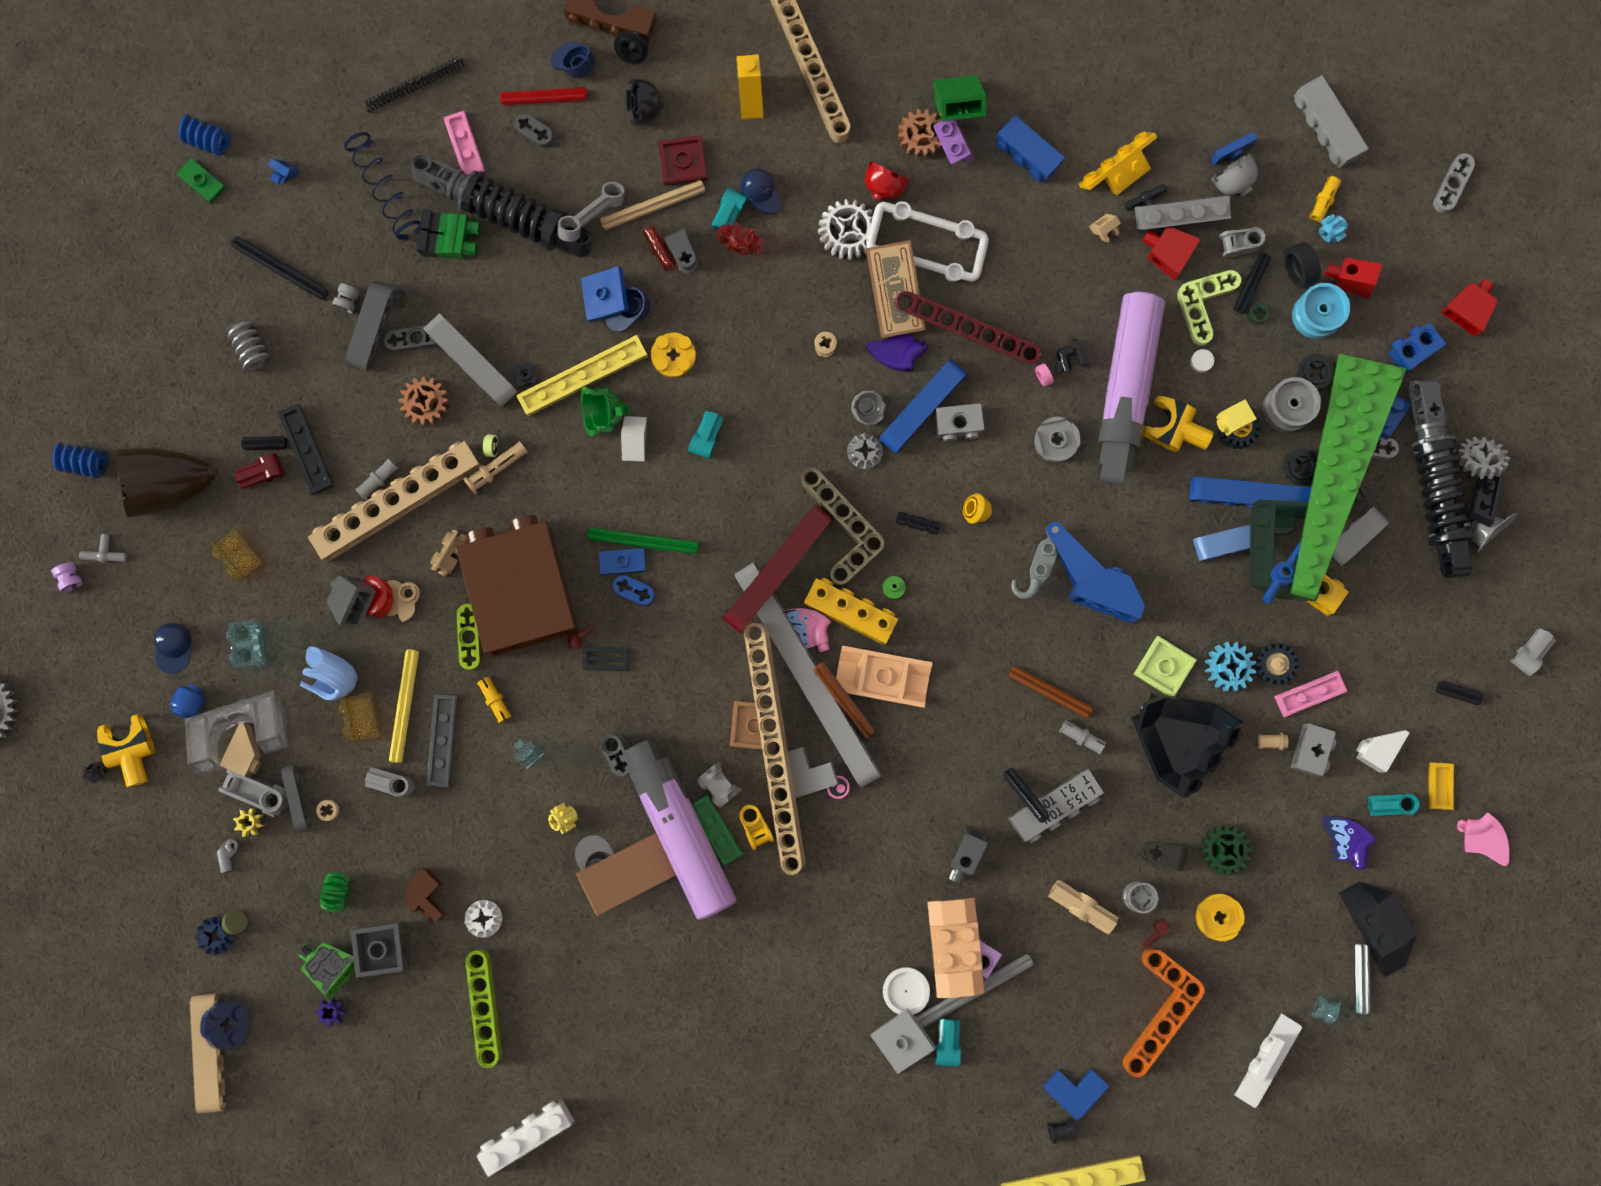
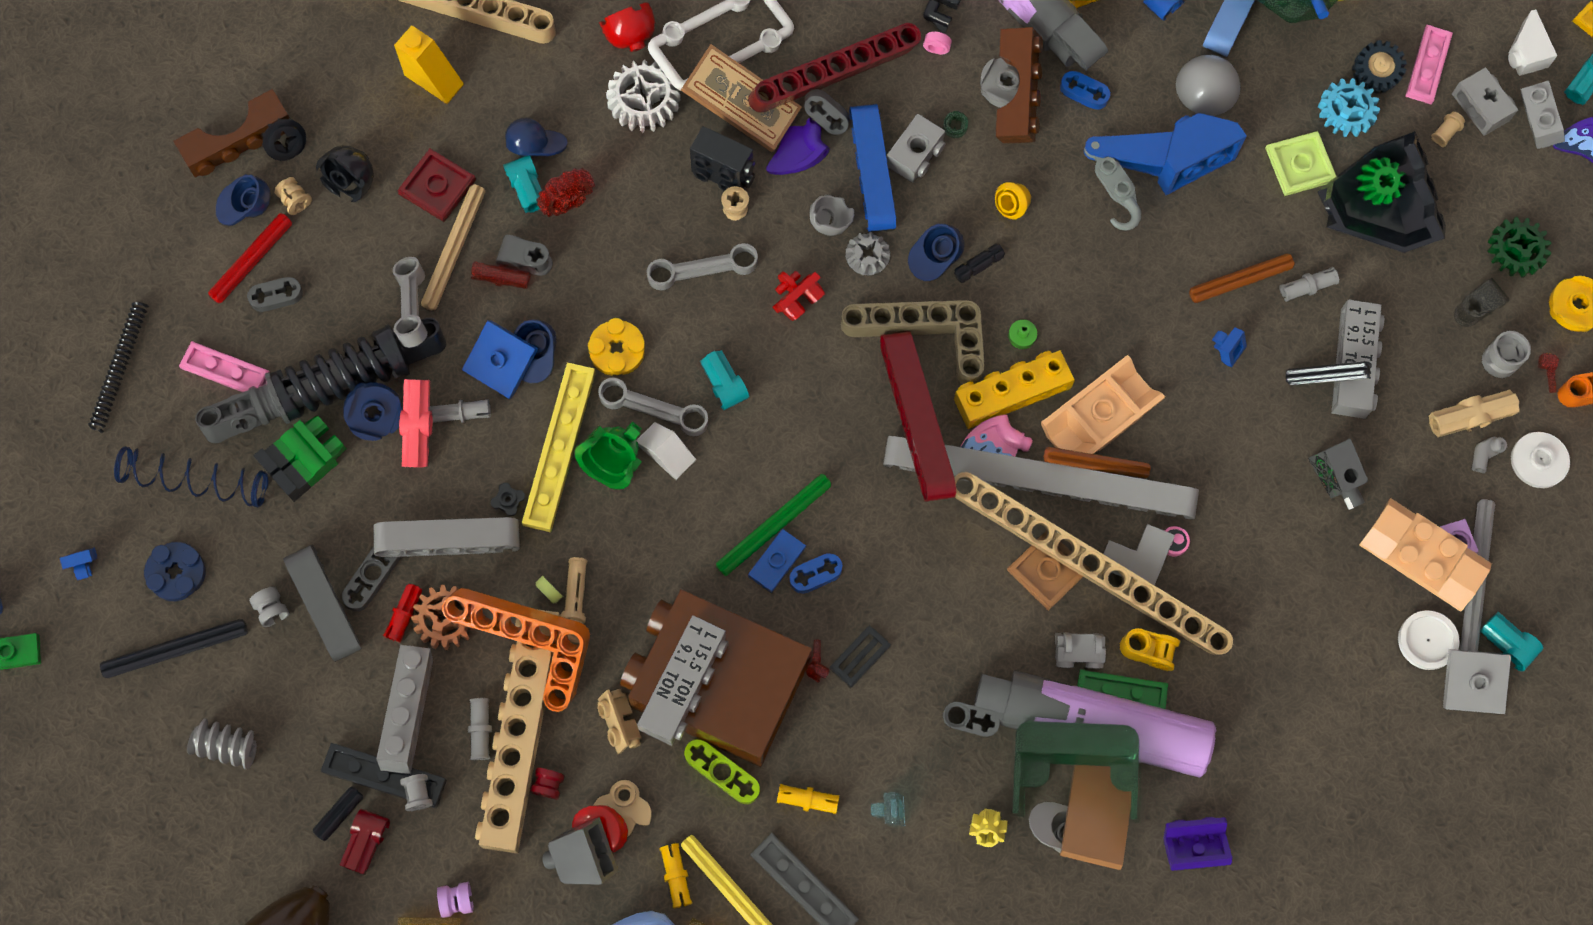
camera: 50 degrees left, 10 degrees down
(268, 549) = (450, 904): none -> lavender wheel
(307, 476) = (416, 792): none -> light grey bush
(311, 222) = (166, 557): none -> dark blue plate
(349, 427) = (405, 709): none -> light grey brick
(377, 544) = (547, 783): none -> dark red wheel
(386, 662) = (675, 875): none -> yellow pin
(406, 376) = (403, 613): none -> red axle
(451, 454) = (529, 634): none -> orange beam
(487, 569) = (682, 681): none -> light grey brick
(515, 242) = (370, 395): none -> dark blue plate
(521, 282) = (416, 423): none -> coral piece
(555, 300) = (461, 411): none -> light grey axle
(602, 84) = (292, 195): none -> tan bush
(632, 808) = (1076, 744): none -> clear green windscreen
(654, 408) = (653, 406): none -> light grey piece
(656, 949) = (1197, 843): none -> dark purple bracket
(768, 360) = (702, 267): none -> light grey piece
(810, 432) = (808, 287): none -> red hips
(842, 309) = (721, 160): none -> black brick
(900, 491) = (935, 252): none -> dark blue cap
(934, 347) = (824, 113): none -> dark grey beam
(996, 721) = (1230, 345): none -> blue tile
(1003, 437) = (958, 116): none -> clear green bush
(1035, 467) = (1018, 118): none -> reddish brown arch
(1066, 933) = (1486, 450): none -> light grey arm
(1078, 972) = (1536, 472): none -> white piece
(1089, 493) = (1084, 90): none -> blue beam
(1168, 566) = (1208, 85): none -> light grey piece
(1201, 730) = (1390, 181): none -> green gear
(1335, 794) = (1542, 115): none -> light grey brick

